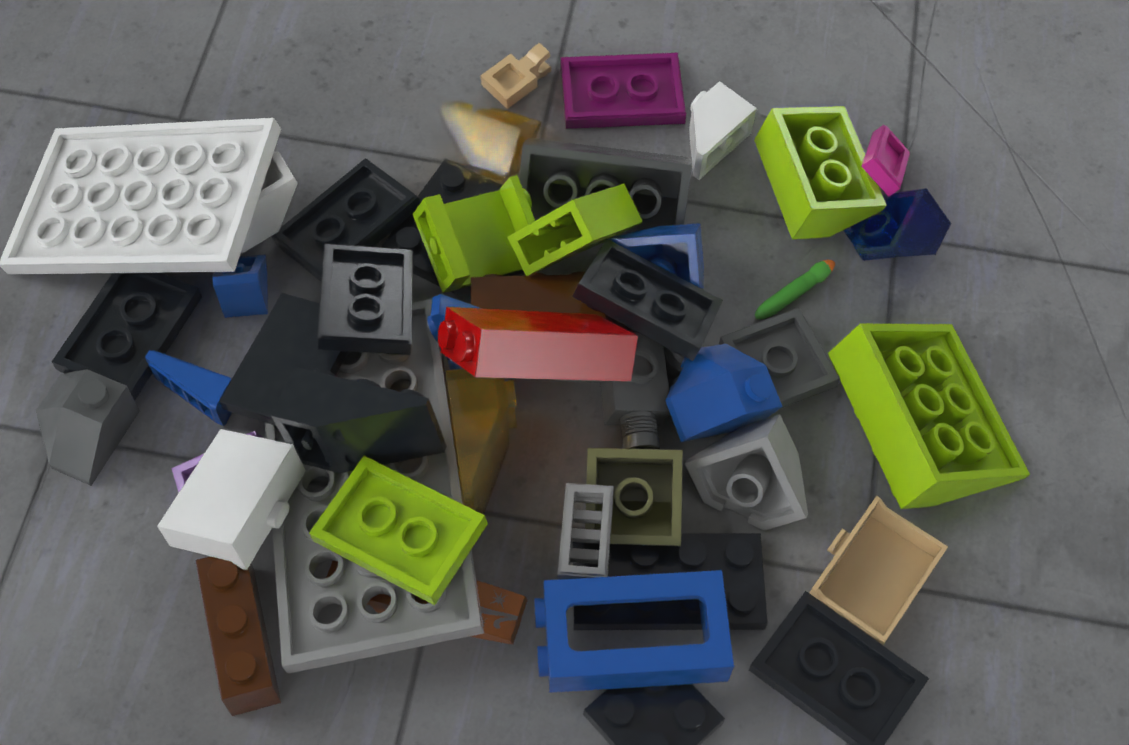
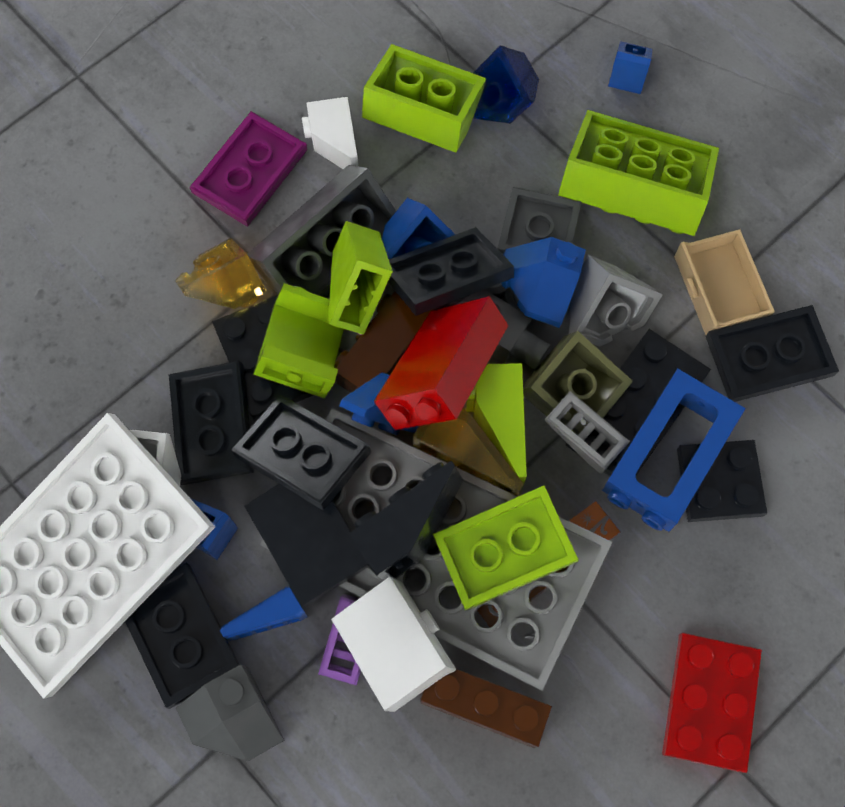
camera: 50 degrees left, 10 degrees up
(515, 78) = (182, 229): tan plate -> none
(539, 451) = (499, 411): none -> lime slope
(795, 289) = (491, 158): bright green piece -> none
(886, 160) = (449, 52): dark pink tile -> none
(1036, 328) = (630, 67): none -> blue slope

